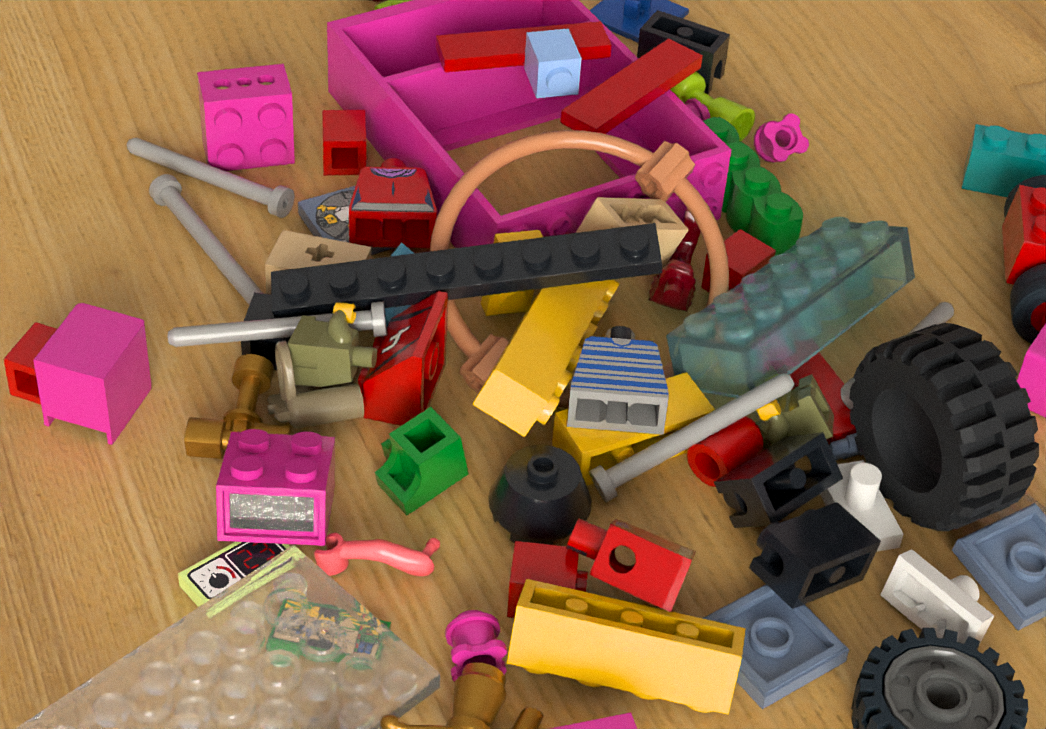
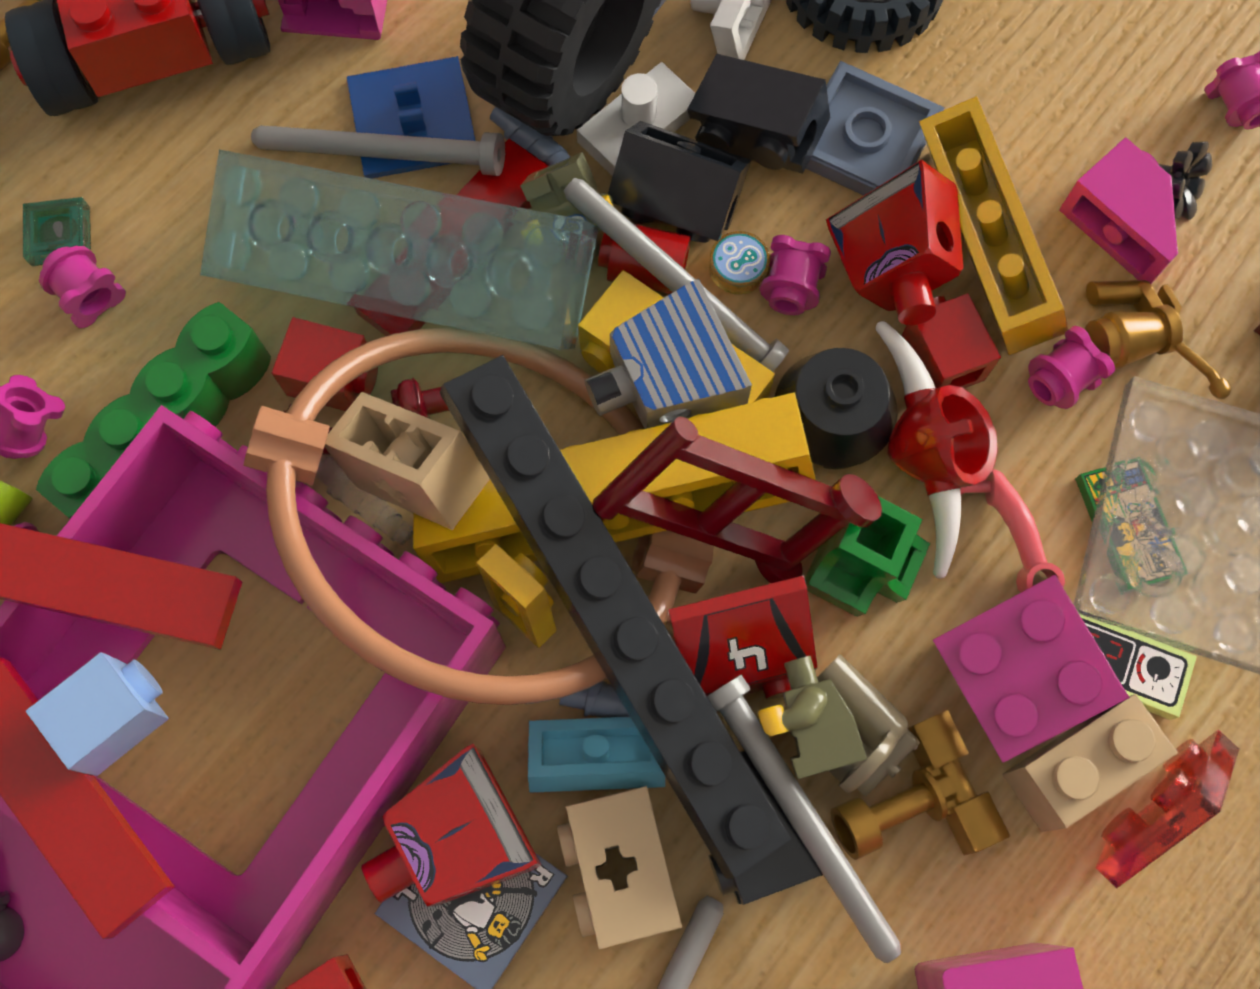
camera: 115 degrees left, 30 degrees up
(130, 495) = (1180, 805): none -> clear red plate
(189, 498) = (1089, 764): none -> tan brick
(454, 409) = (777, 560): none -> dark red piece
(469, 531) = (939, 440): none -> red helmet
(662, 518) = (794, 275): none -> dark pink brick
(696, 509) = (739, 262): none -> tile
(864, 191) = (80, 284): none -> dark pink brick
(916, 202) = (53, 226): none -> clear green tile

